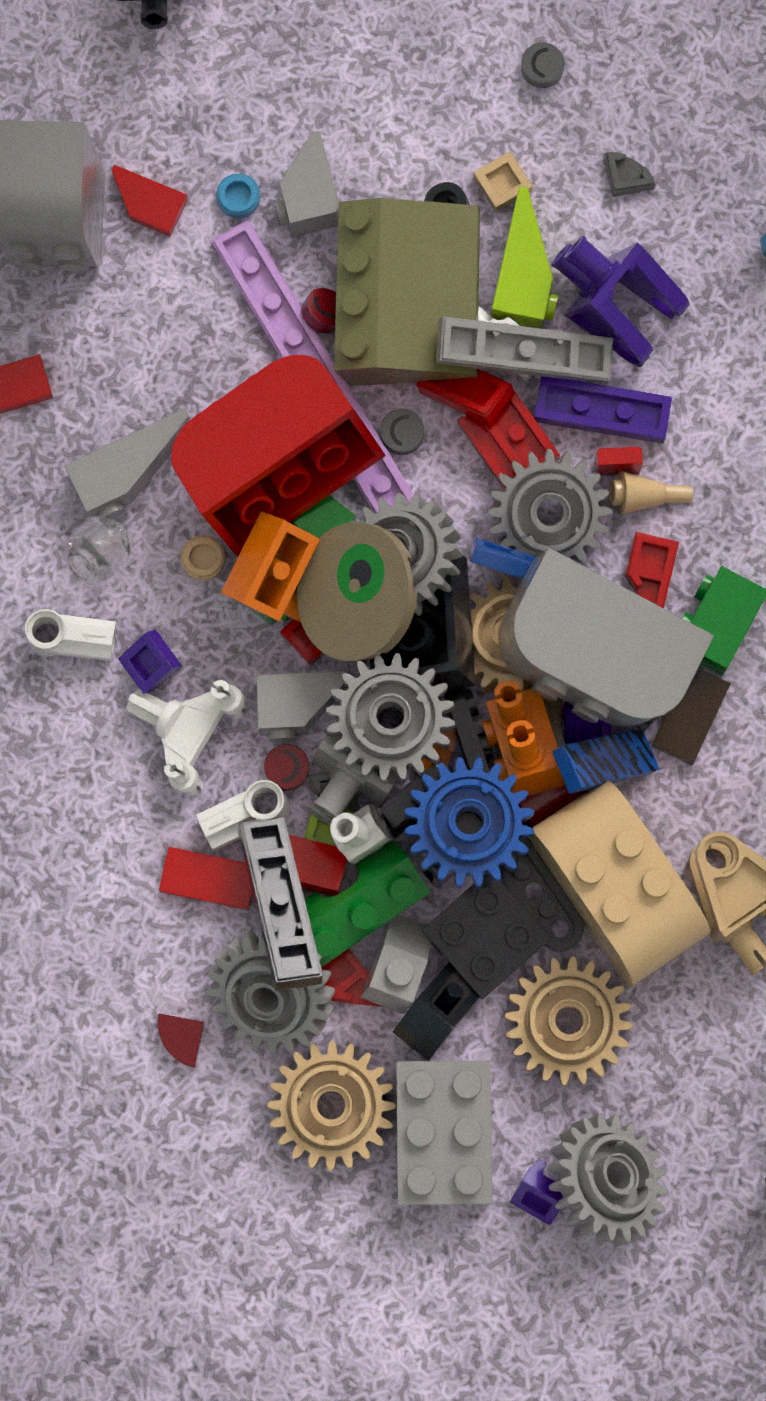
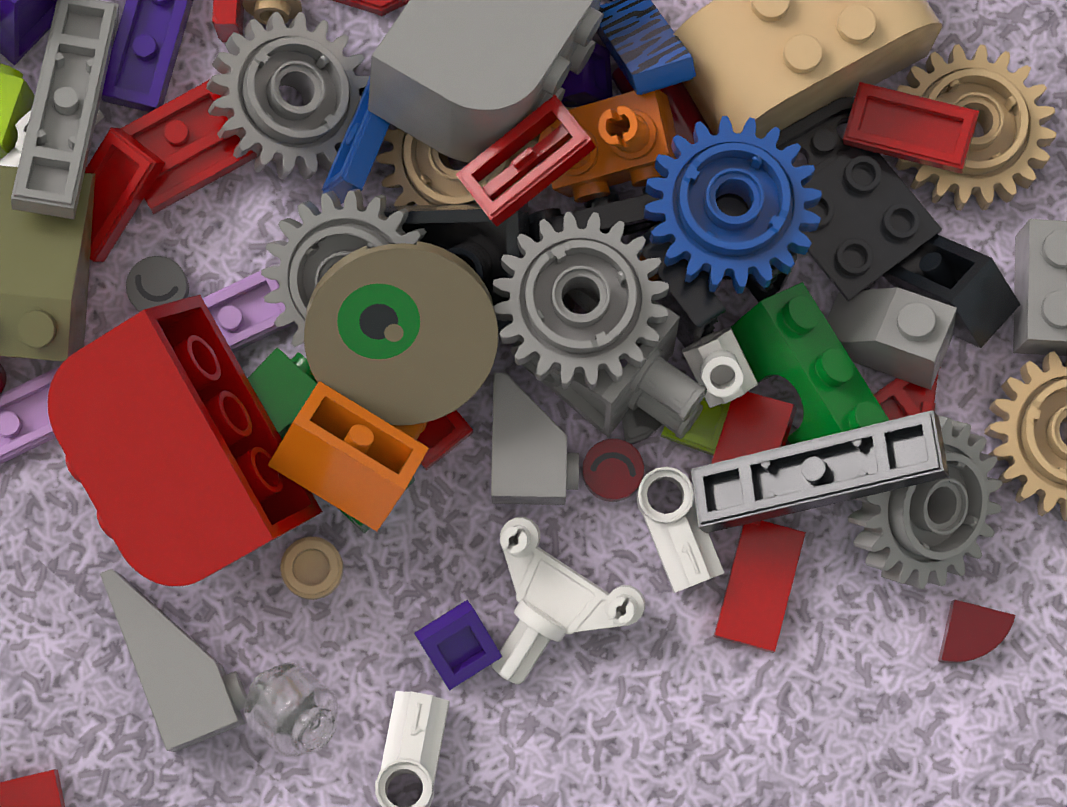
camera: 90 degrees left, 0 degrees up
(515, 698) = (539, 177): none -> red tile
(556, 968) = (911, 127): none -> red tile

